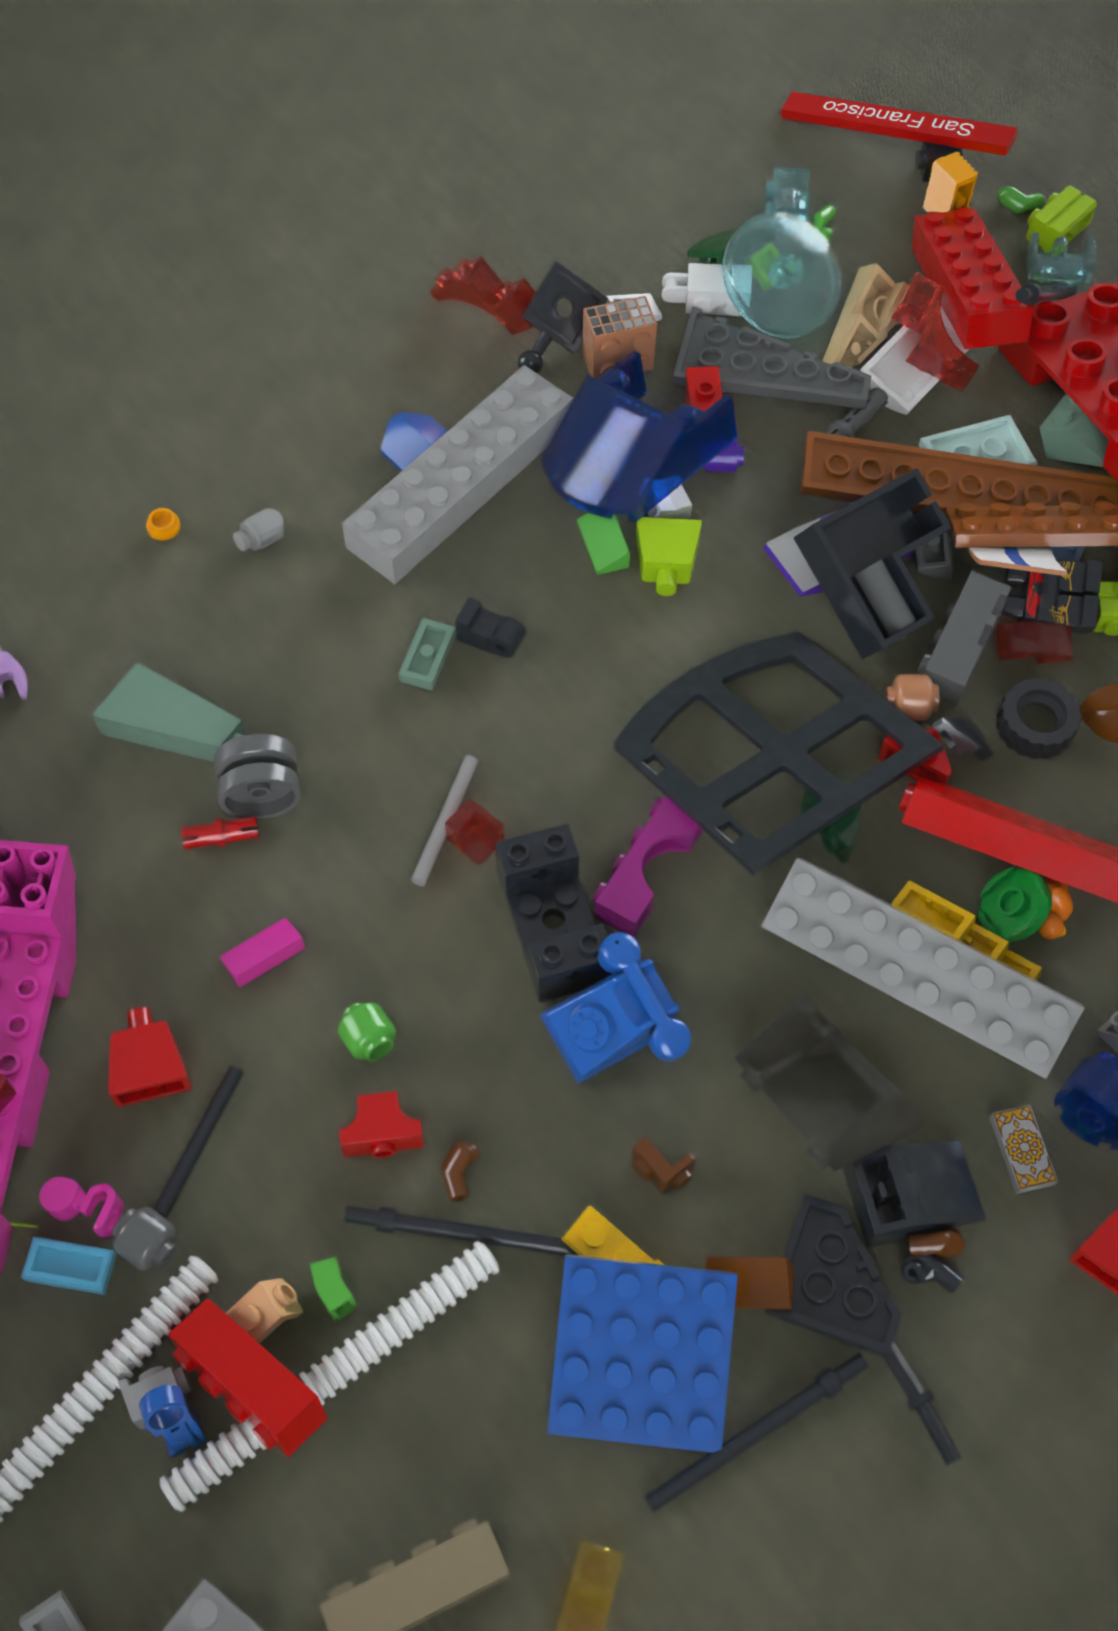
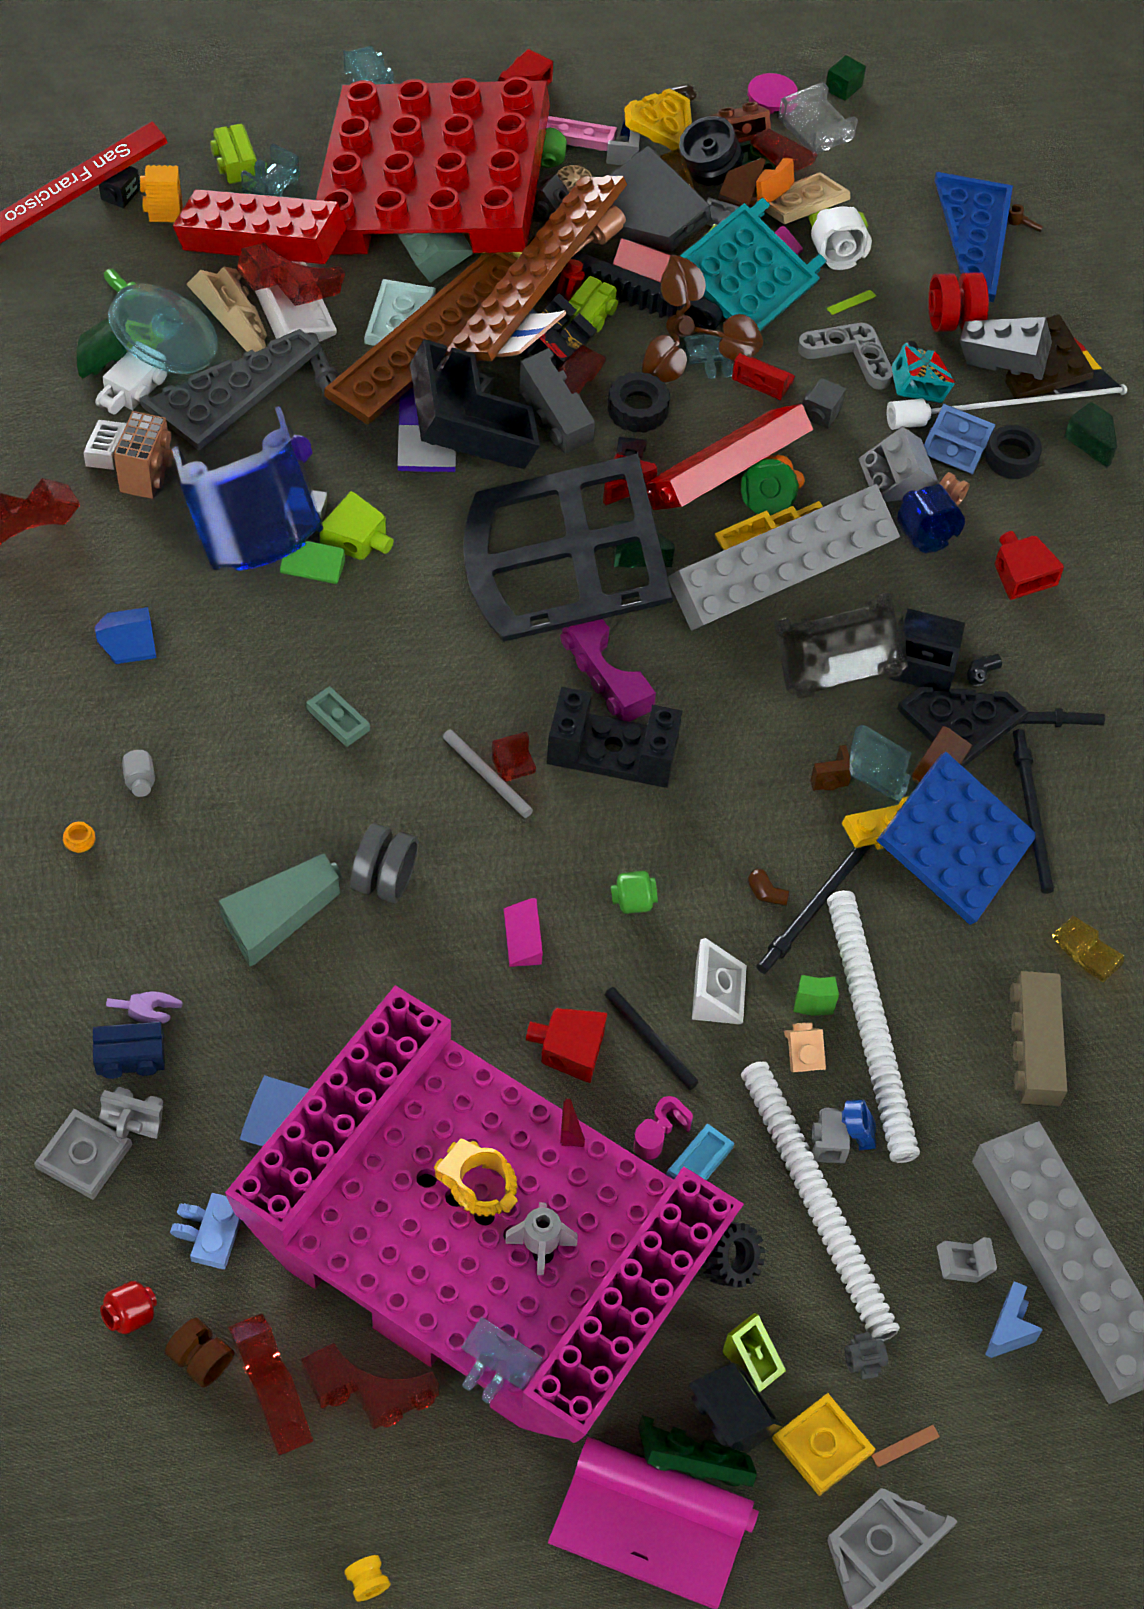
camera: 65 degrees left, 5 degrees down
(144, 1238) = (713, 1095): dark grey head -> none
(220, 832) = (404, 918): red pin -> none
(248, 1378) = (857, 1061): red brick -> none
(294, 1175) = (718, 985): none -> white slope
(380, 1128) = (712, 914): red brick -> none
(456, 475) = (187, 618): light grey brick -> none
(488, 630) = (345, 667): black leg -> none
(543, 313) = (80, 487): black plate -> none
(617, 1014) = (717, 734): blue piece -> none
(696, 1212) = (879, 763): none -> clear light blue slope
(702, 387) = (237, 435): red brick -> none
(789, 192) = (80, 293): clear light blue window -> none
(885, 597) = (498, 420): dark grey piece -> none
(914, 695) = (579, 452): nougat head -> none
(944, 1243) = (969, 651): reddish brown arm -> none
(1017, 201) = (193, 167): bright green arm -> none
(1023, 1149) = (930, 580): tile -> none
(1033, 293) = (330, 194): black bar -> none

